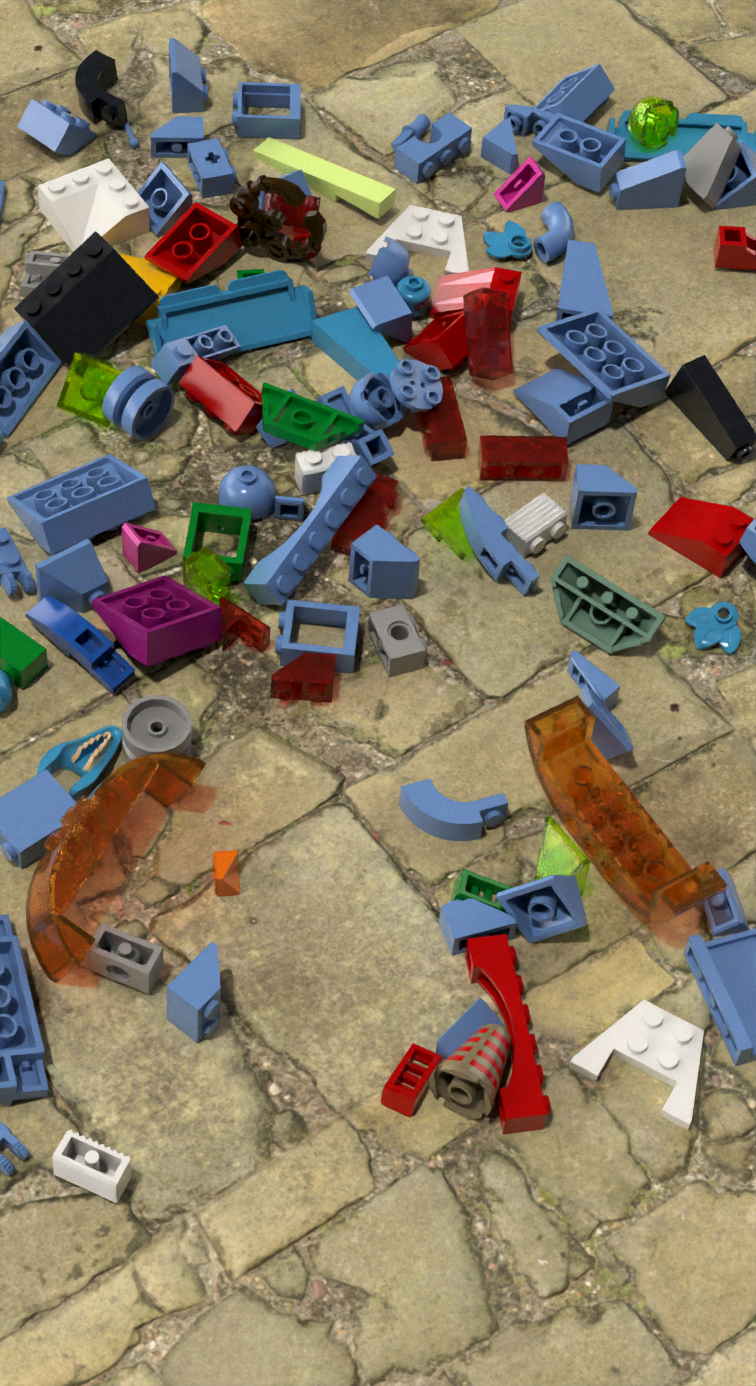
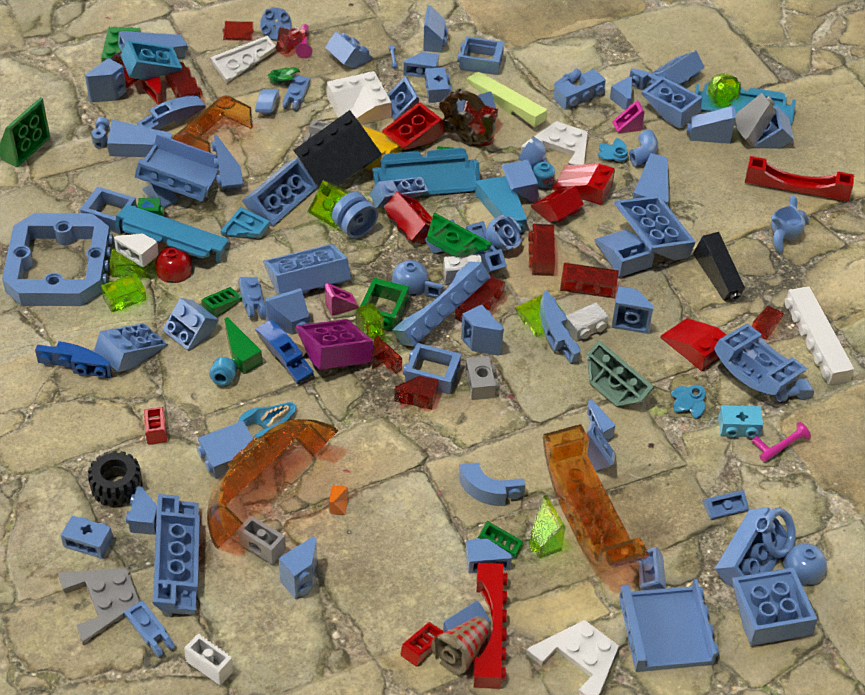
camera: 15 degrees right, 5 degrees down
(92, 79) = (376, 27): black arch -> none
(156, 727) = (316, 404): light grey wheel -> none
(407, 382) = (527, 233): medium blue plate -> none
(488, 334) = (583, 202): clear red brick -> none
(545, 906) = (531, 550): medium blue slope -> none

